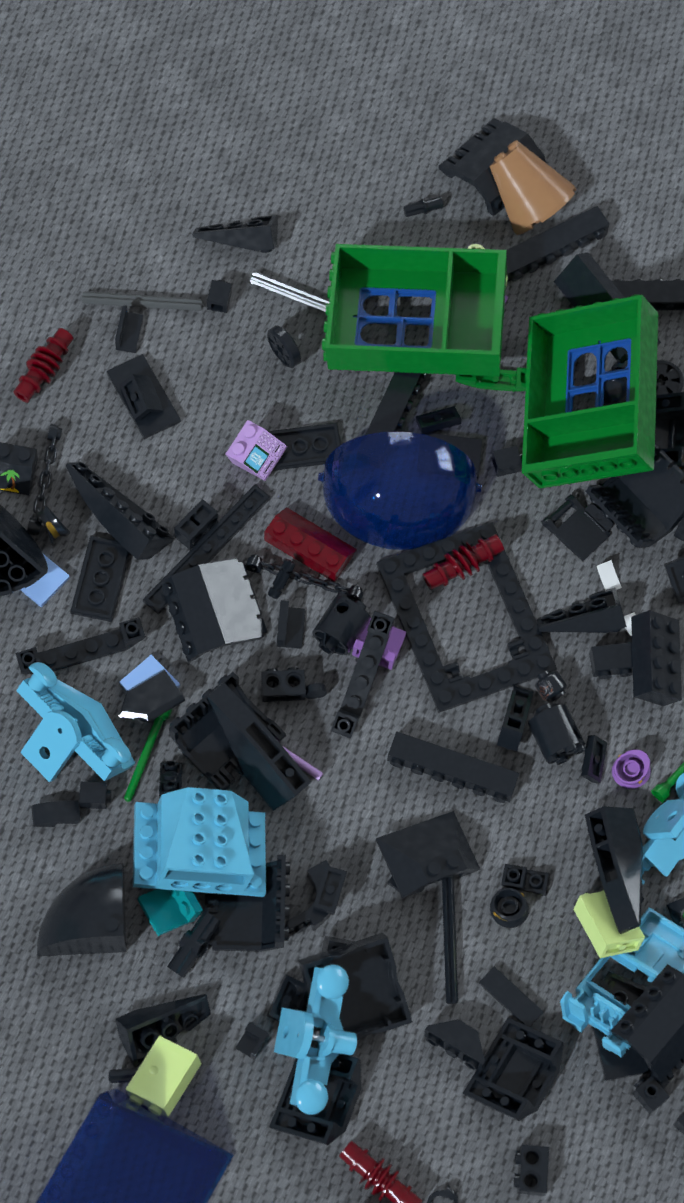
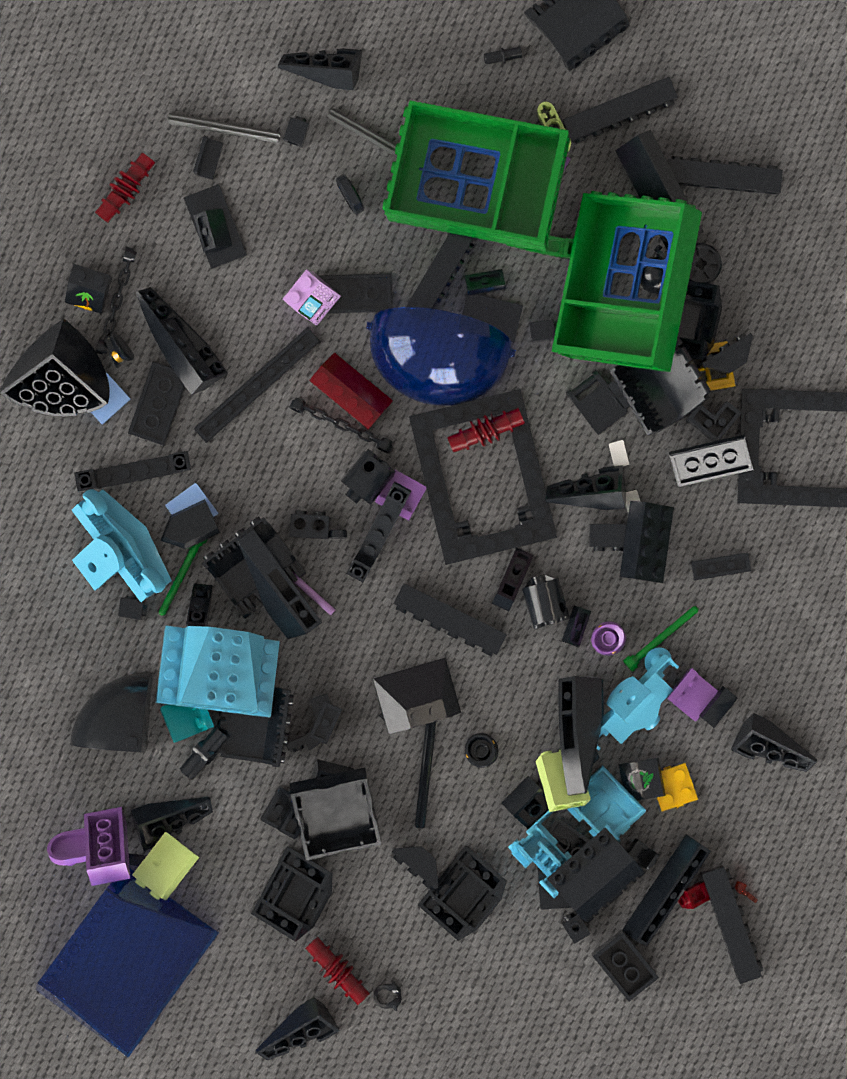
camera: 15 degrees right, 20 degrees up
(55, 812) = (97, 620): black slope -> none
(86, 1053) = (99, 844): none -> medium lavender brick
(196, 524) = (248, 364): black brick -> none
(213, 607) = (256, 447): black hinge -> none
(252, 1040) = (245, 840): black panel -> none
(281, 579) = (320, 424): black axle -> none
(290, 626) = (323, 469): black panel -> none
(296, 1035) = (279, 850): medium azure piece -> none
(510, 997) = (470, 829): black tile -> none
(525, 880) = (499, 727): black slope -> none
(529, 187) = (607, 51): medium nougat cone -> none
(538, 1171) = (470, 978): black brick -> none
(550, 685) = (548, 554): black head -> none
(571, 957) = (526, 802): none -> black slope

